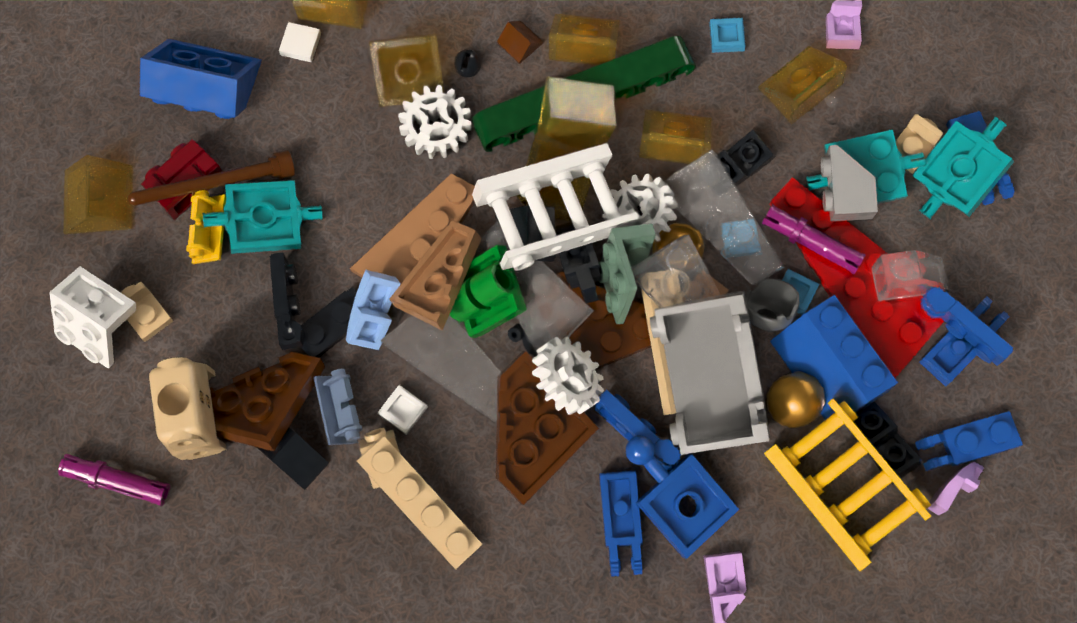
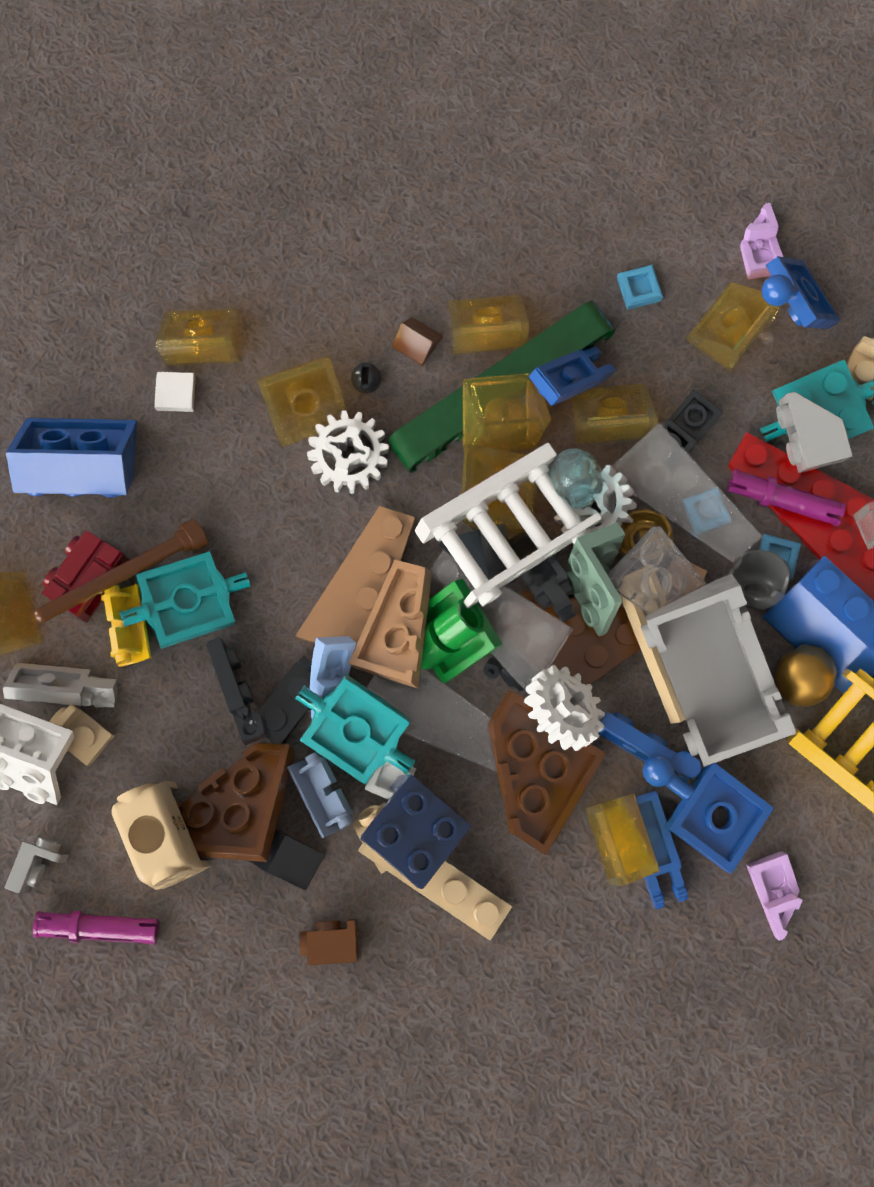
camera: 15 degrees left, 5 degrees up
(69, 412) = (27, 868): none -> light grey bracket
(137, 266) = (59, 686): none -> light grey hinge
(314, 538) = (330, 943): none -> reddish brown brick
(380, 356) = (355, 729): none -> teal plate
(409, 454) = (415, 831): none -> dark blue bracket
(593, 503) = (622, 840): none -> clear yellow slope
(626, 180) = (576, 477): none -> clear light blue head
(644, 94) = (570, 375): none -> blue hinge
(868, 64) = (795, 284): none -> blue plate

